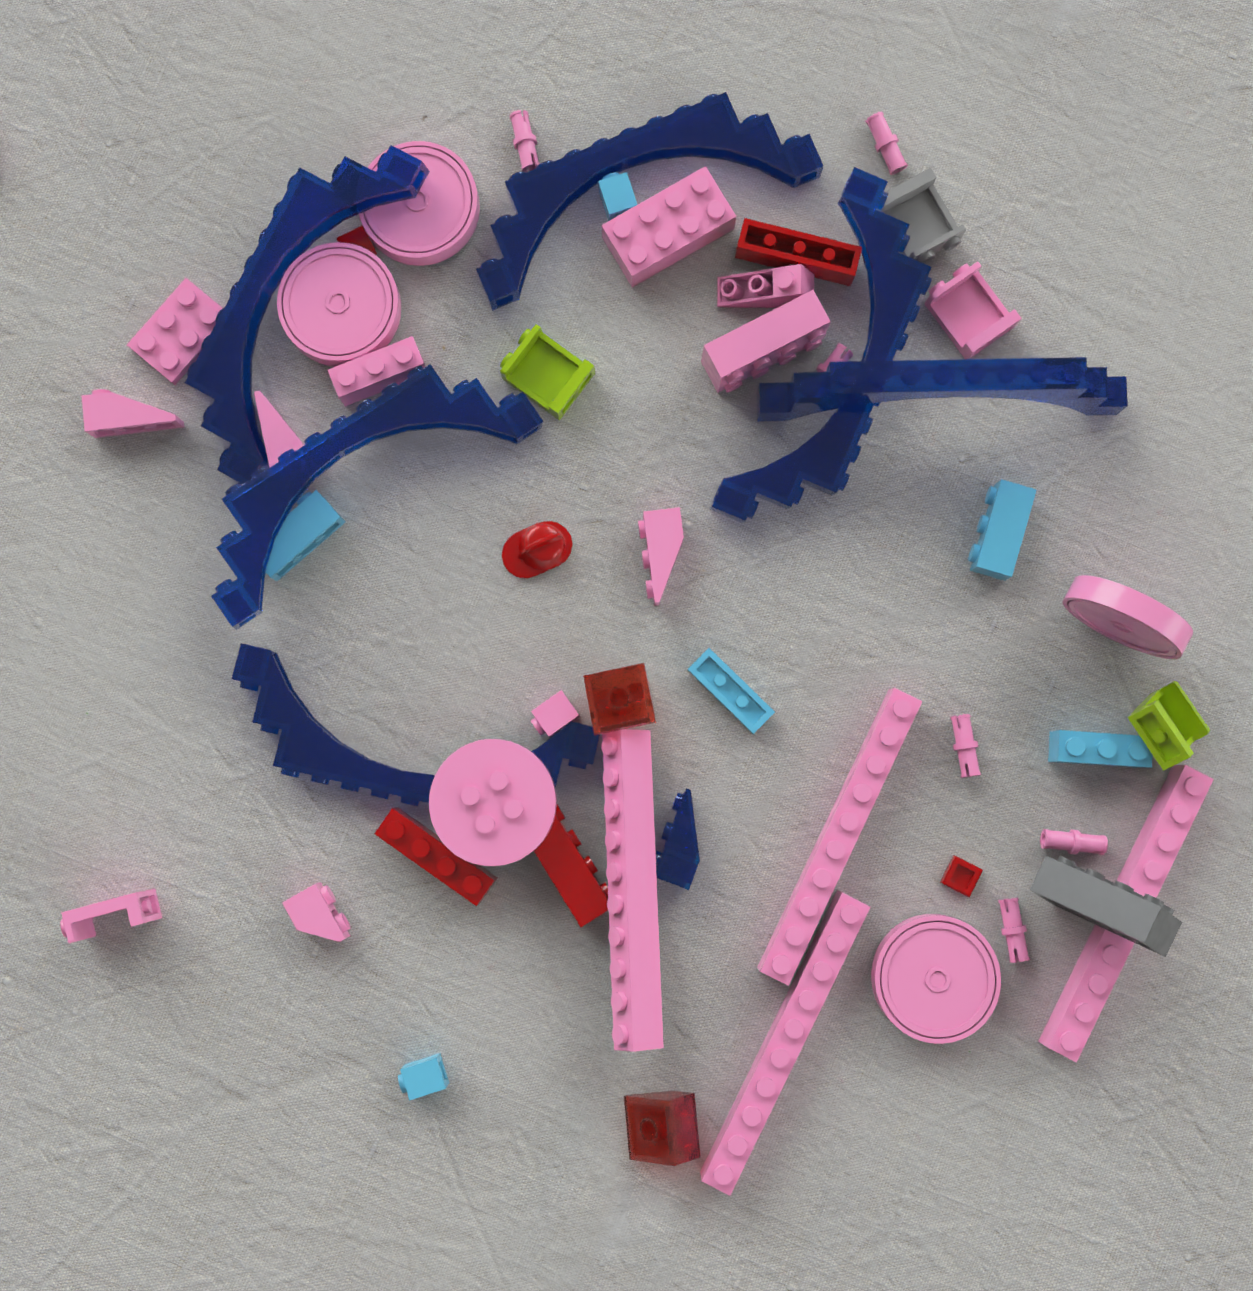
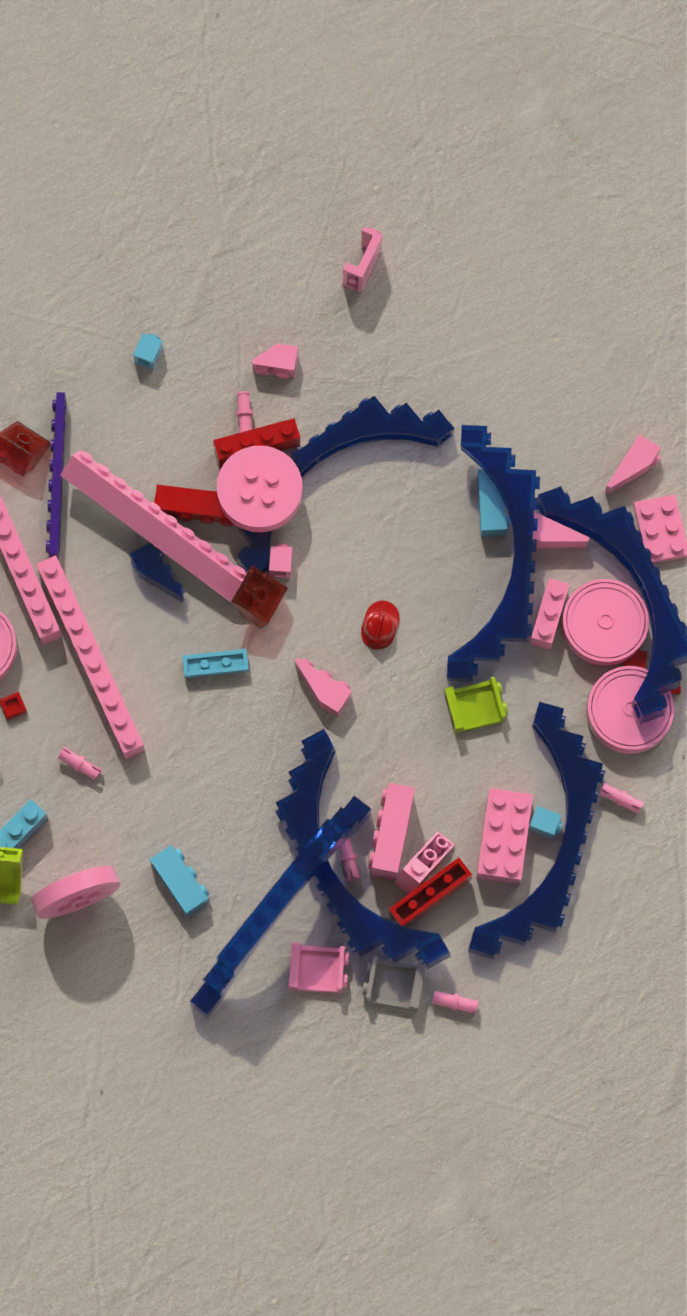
camera: 125 degrees right, 10 degrees down
(411, 900) = (244, 412): none -> bright pink pin
(649, 1064) = (56, 466): none -> dark purple plate

